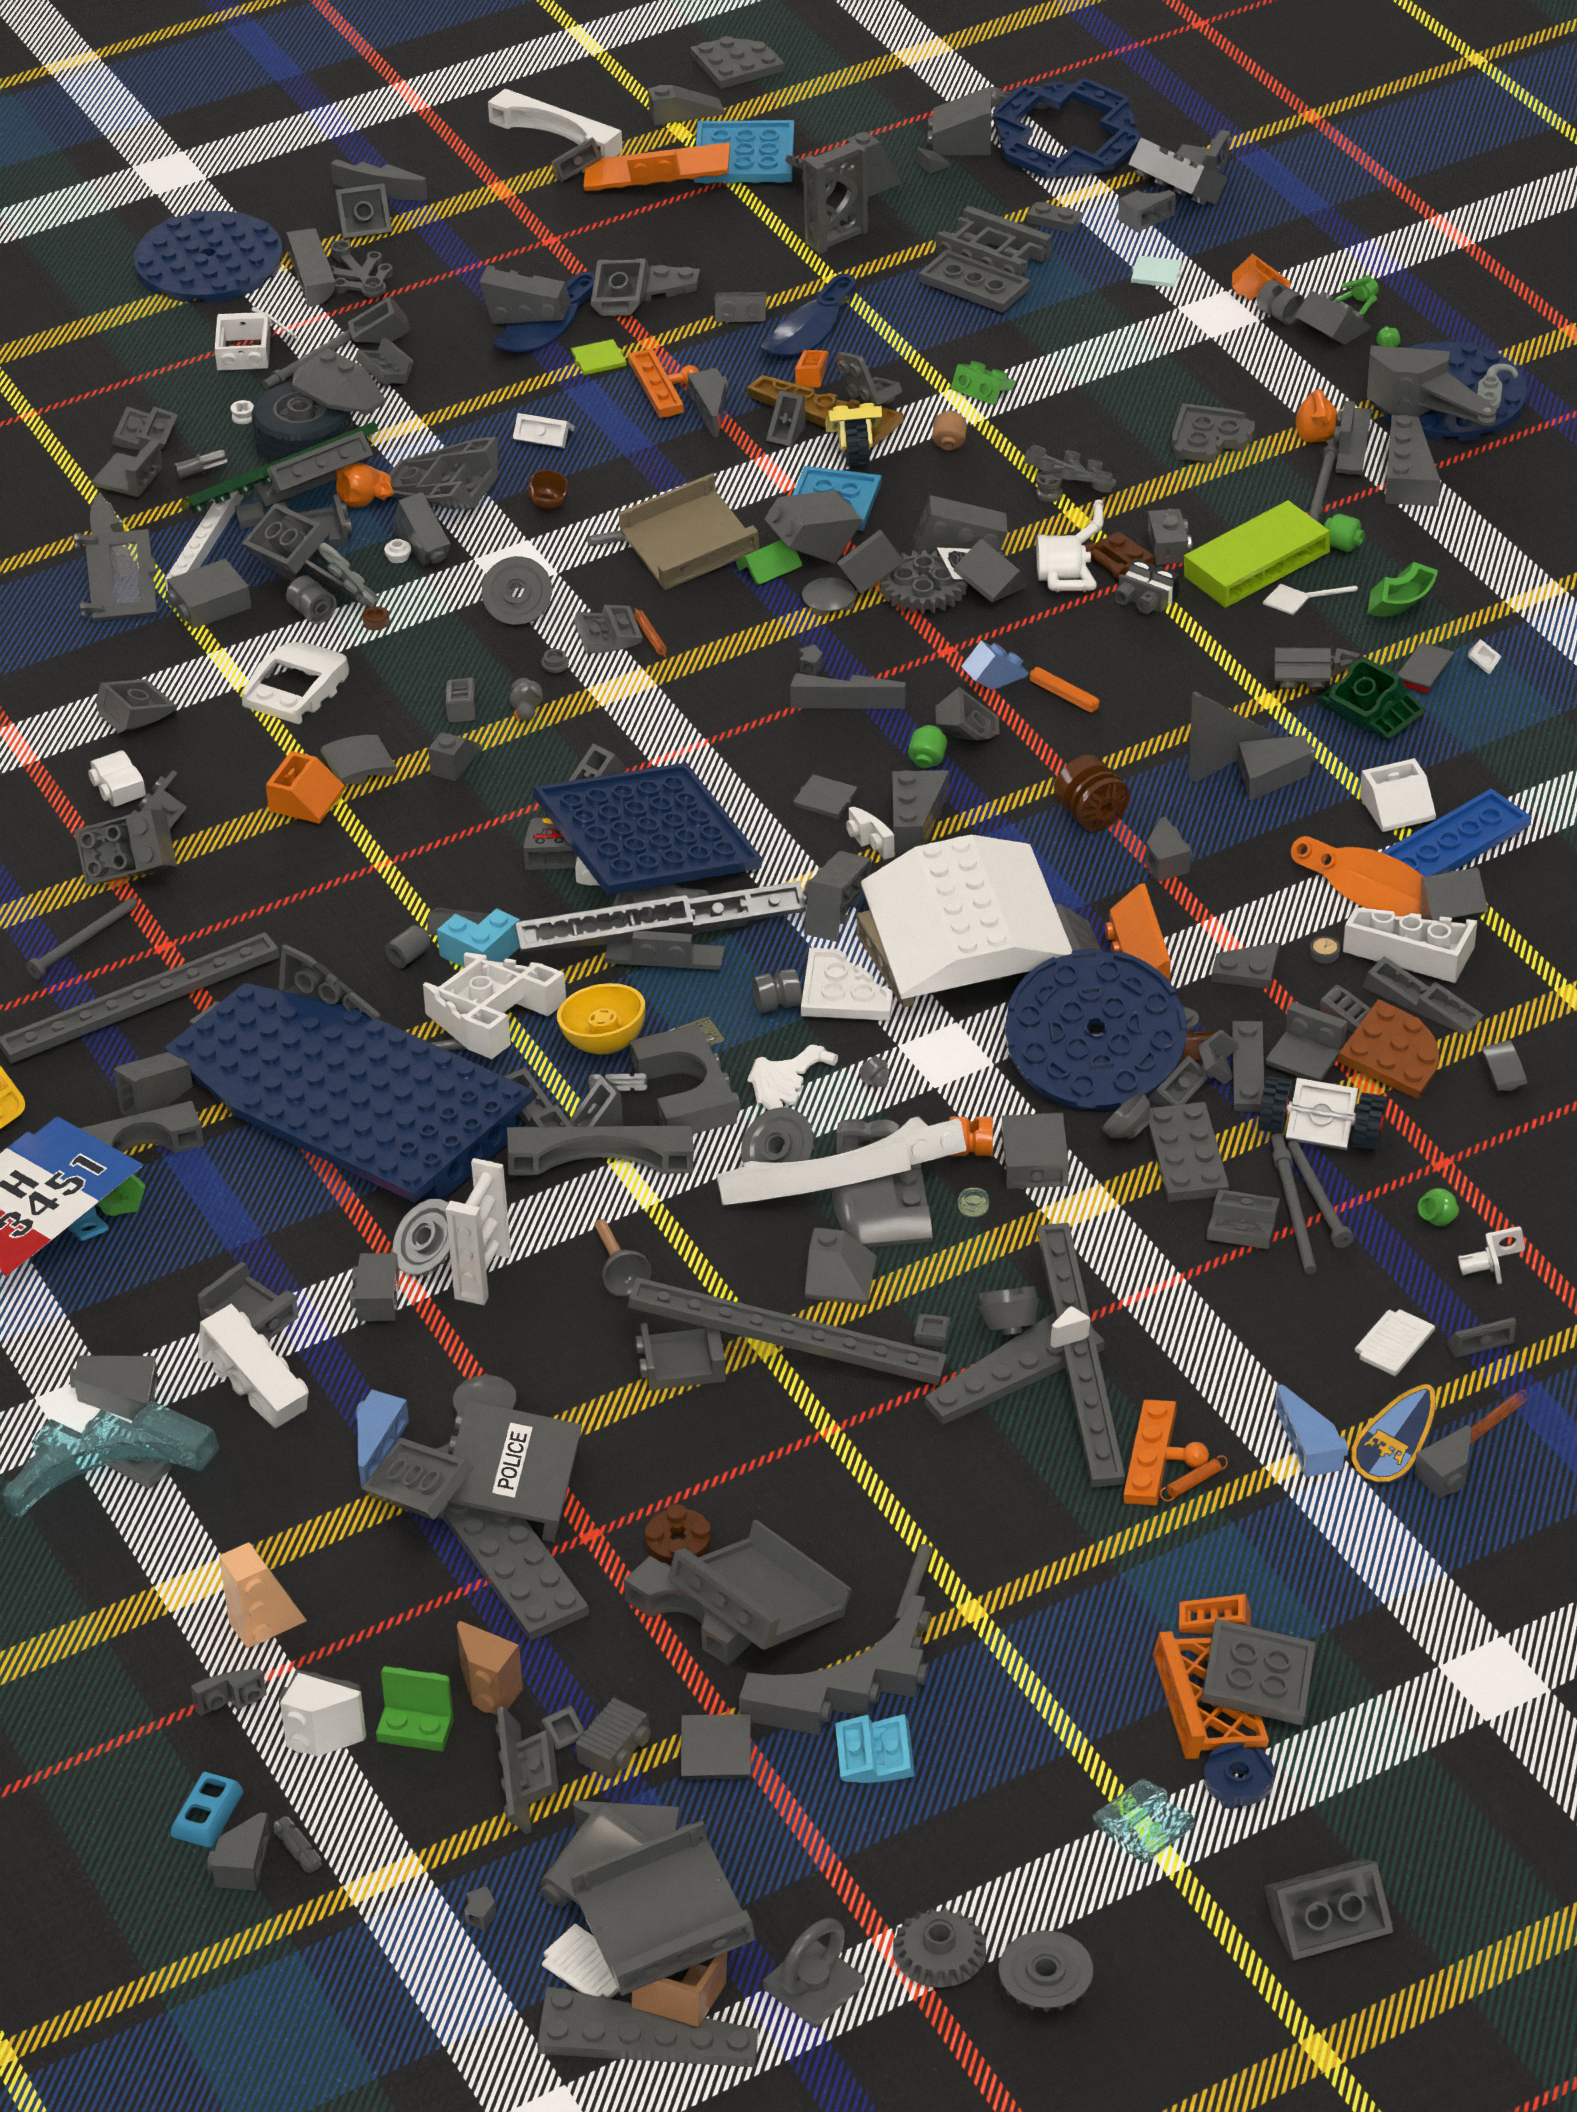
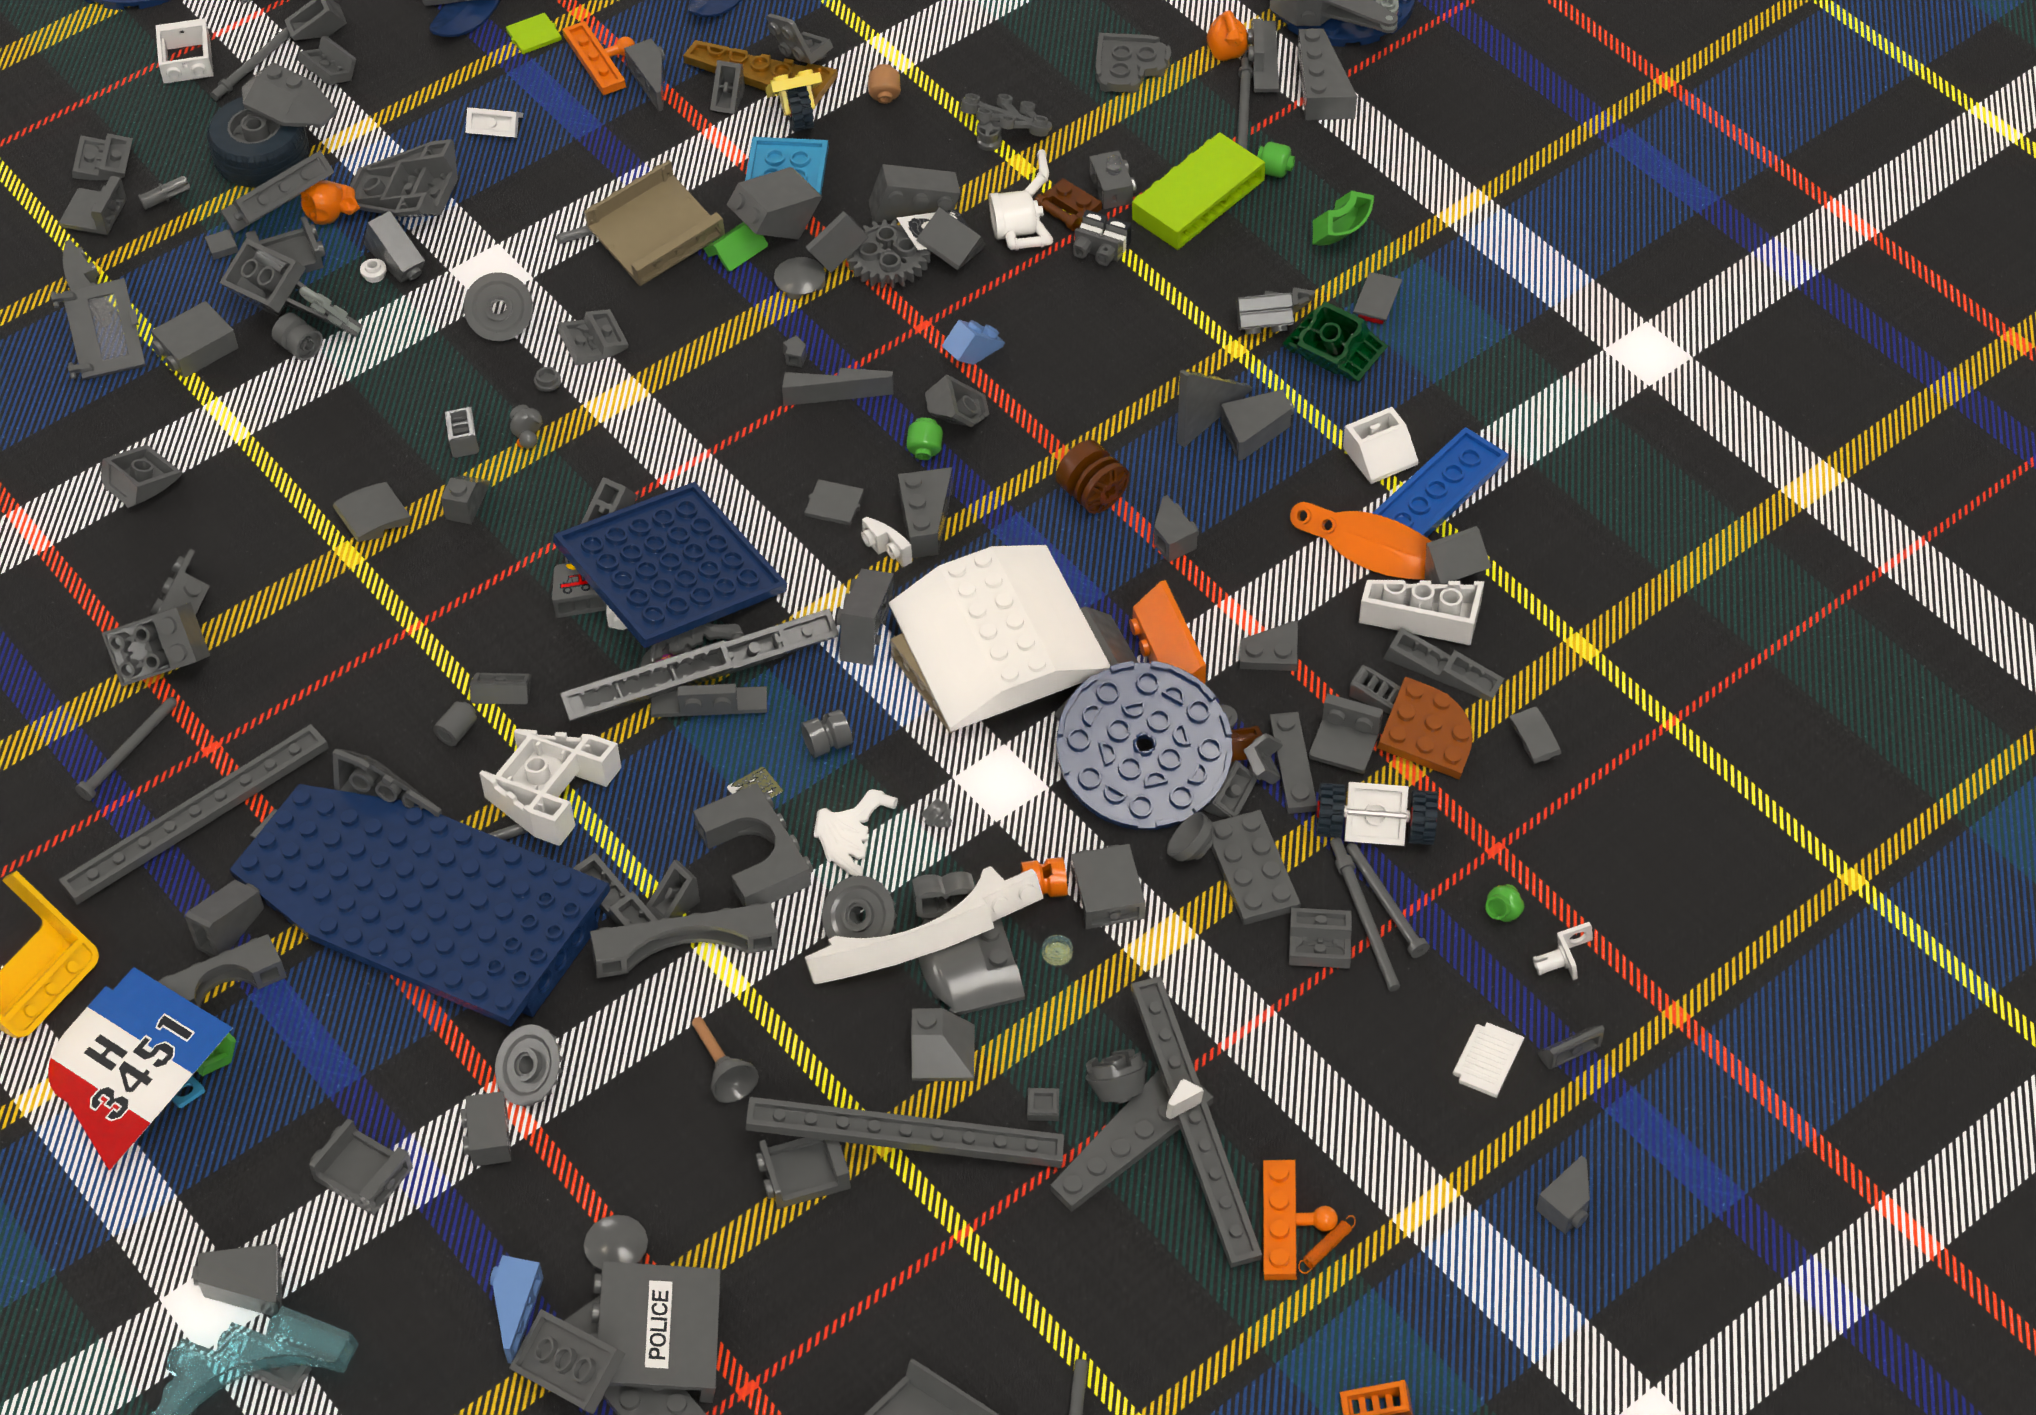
camera: 10 degrees left, 10 degrees up
(117, 778) = (135, 561): white brick -> none
(205, 536) = (182, 269): white piece -> none
(242, 412) = (196, 129): white bush -> none
(245, 482) = (212, 214): dark green plate -> none
(251, 1366) = (377, 1241): white wedge -> none
(273, 321) = (211, 26): white piece -> none
(303, 788) = (323, 554): orange slope -> none
(310, 658) = (304, 403): white slope -> none
(375, 618) = (363, 348): reddish brown tile -> none
(478, 1231) = (579, 1066): white fence -> none
(492, 937) = (531, 711): medium azure brick -> none
(547, 489) = (509, 188): reddish brown hair -> none
(602, 1017) = (662, 787): yellow piece -> none
(622, 1081) = (687, 854): axle -> none
(651, 634) = (634, 337): orange piece -> none
(673, 1522) = (839, 1398): reddish brown plate -> none
(811, 368) = (740, 26): orange slope -> none
(842, 990) = (889, 721): white plate -> none
(981, 383) = (904, 27): bright green bracket -> none
(1064, 689) = (1043, 358): orange axle -> none
(1291, 600) = (1237, 235): white piece -> none
(1310, 1435) = (1431, 1181): medium blue slope -> none
(1325, 950) = (1341, 622): tile -> none
(1394, 1436) = (1513, 1174): shield -> none
(1484, 656) = (1429, 279): white slope -> none
(1494, 1422) = (1608, 1124): orange piece -> none

